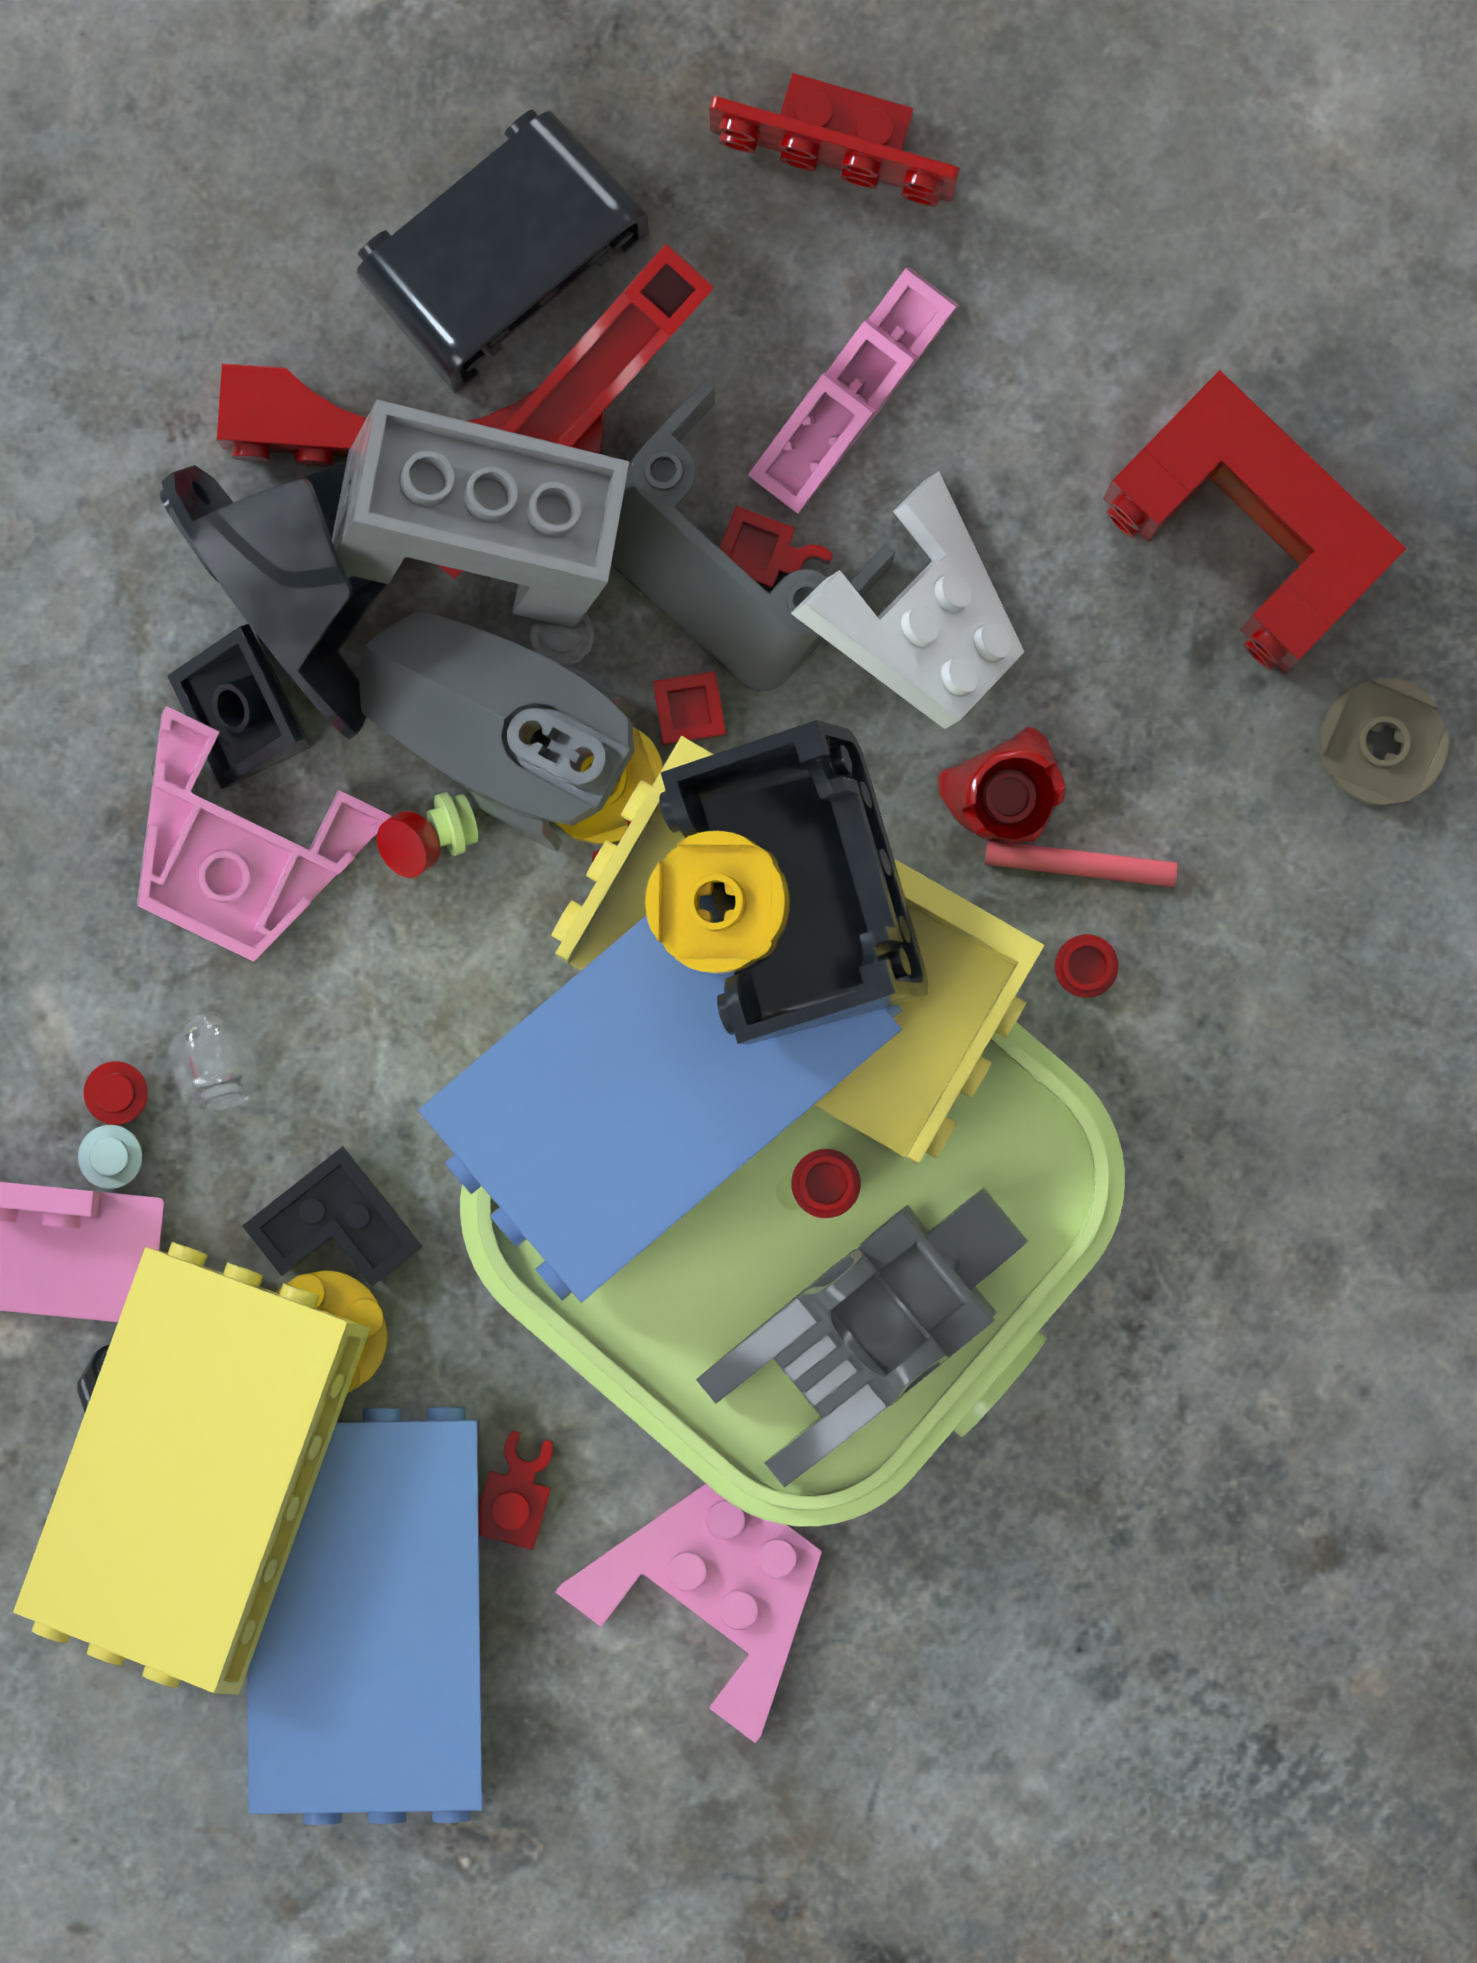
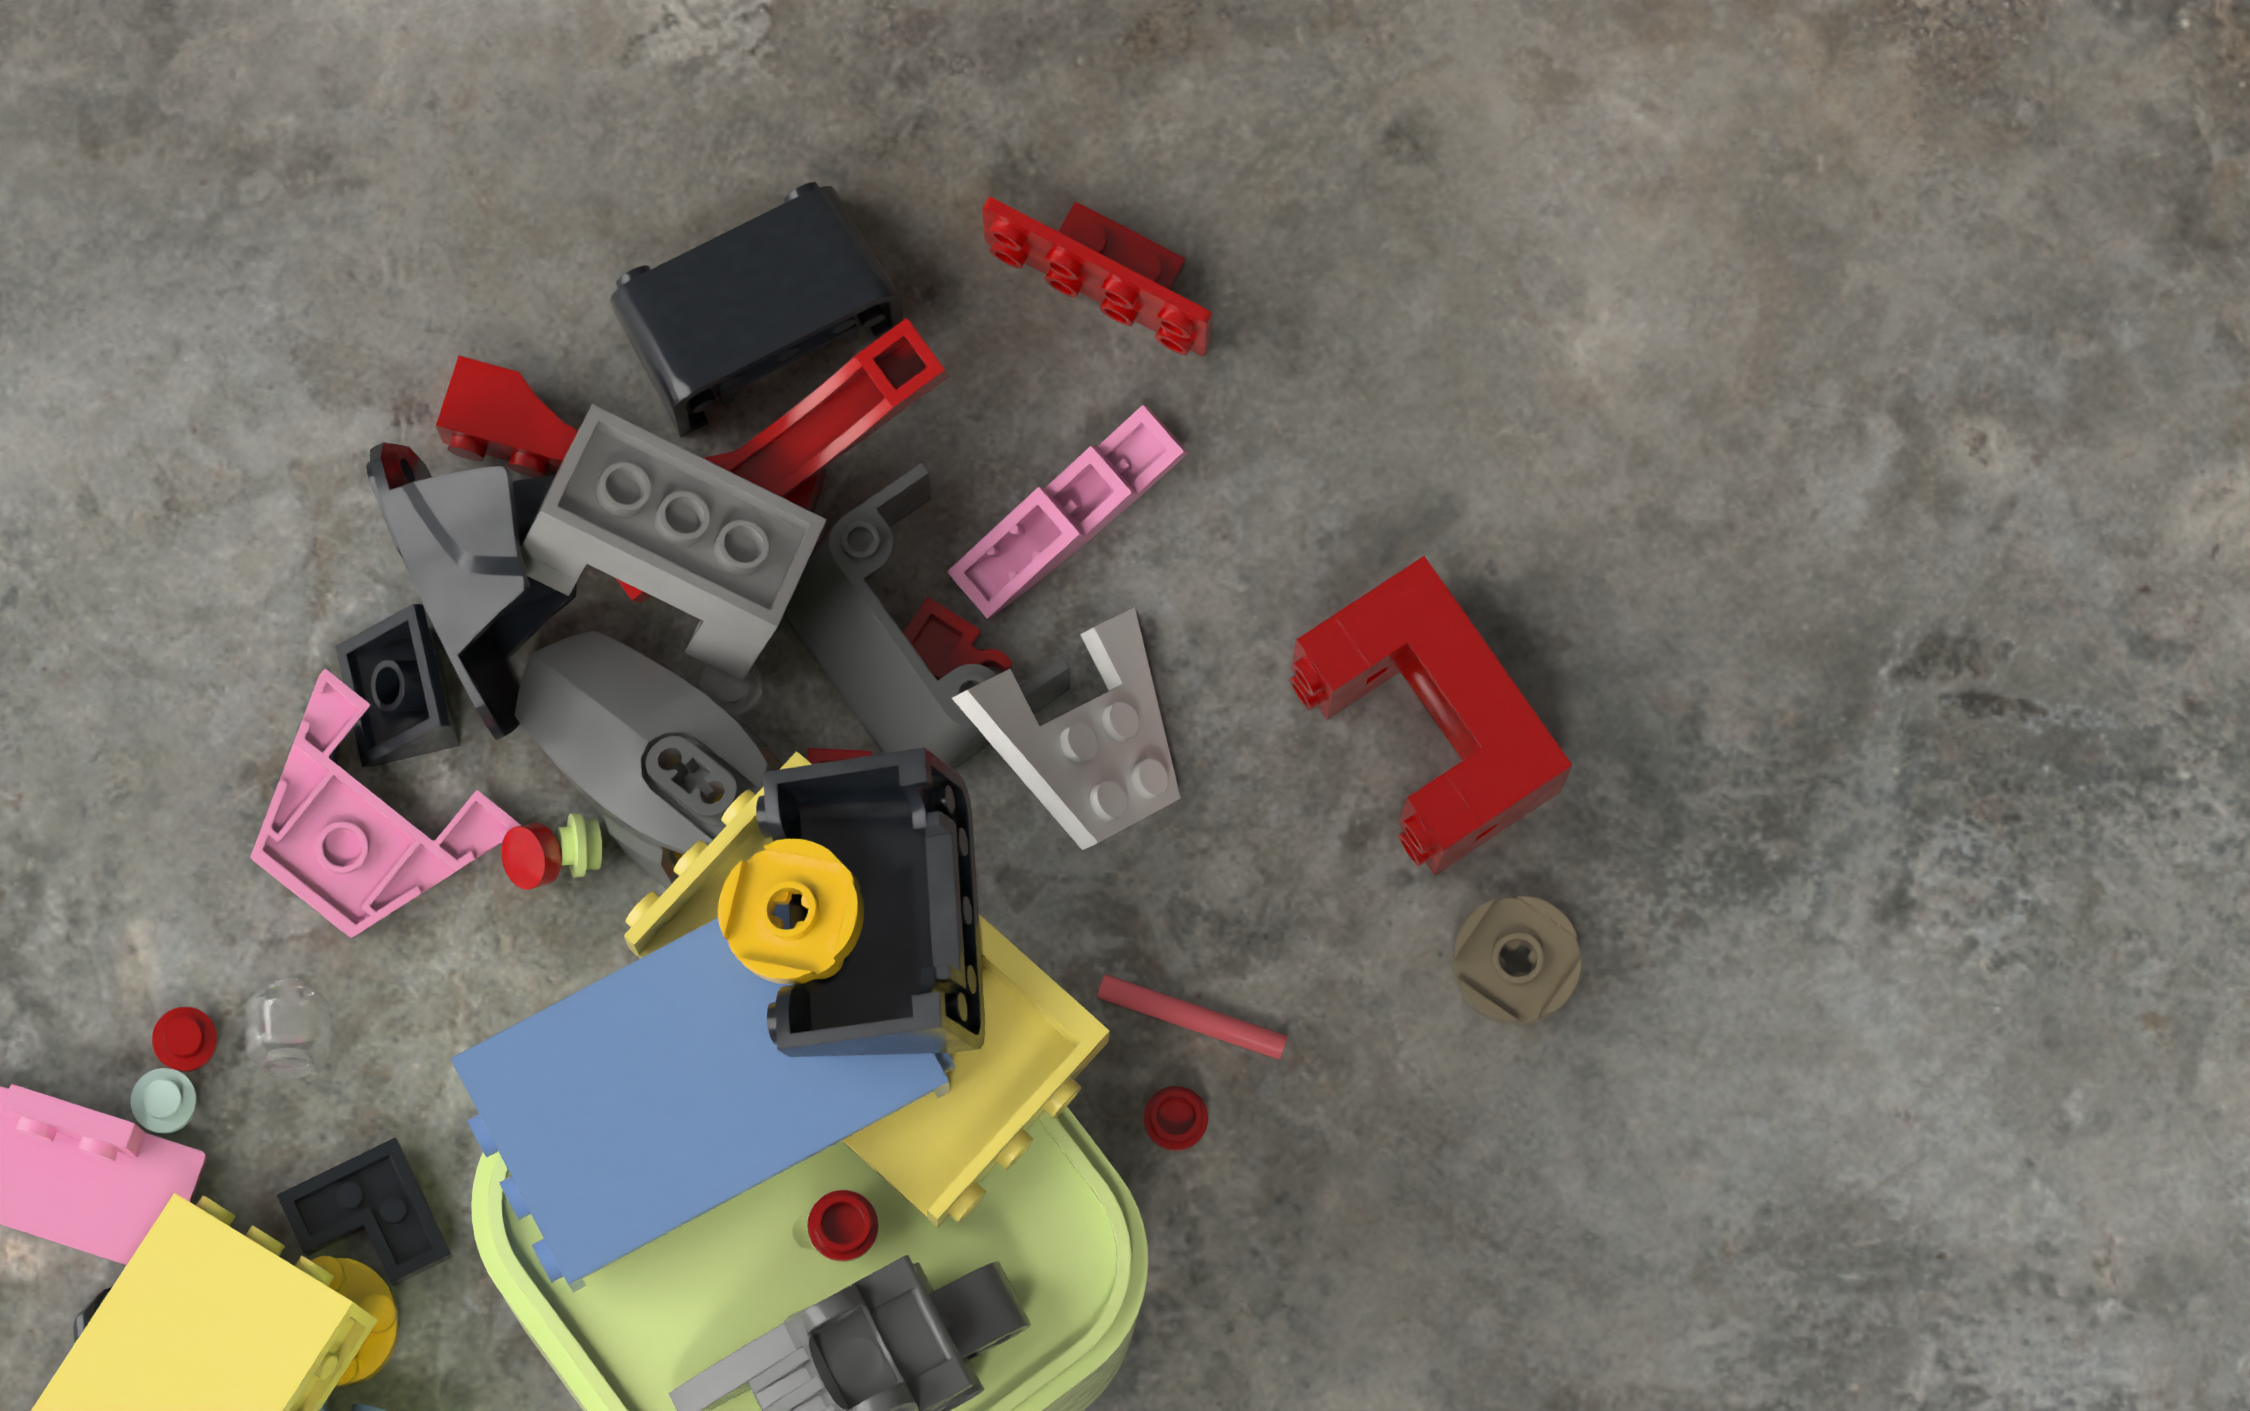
camera: 10 degrees right, 10 degrees down
(1006, 789) = (1133, 927): red hair -> none

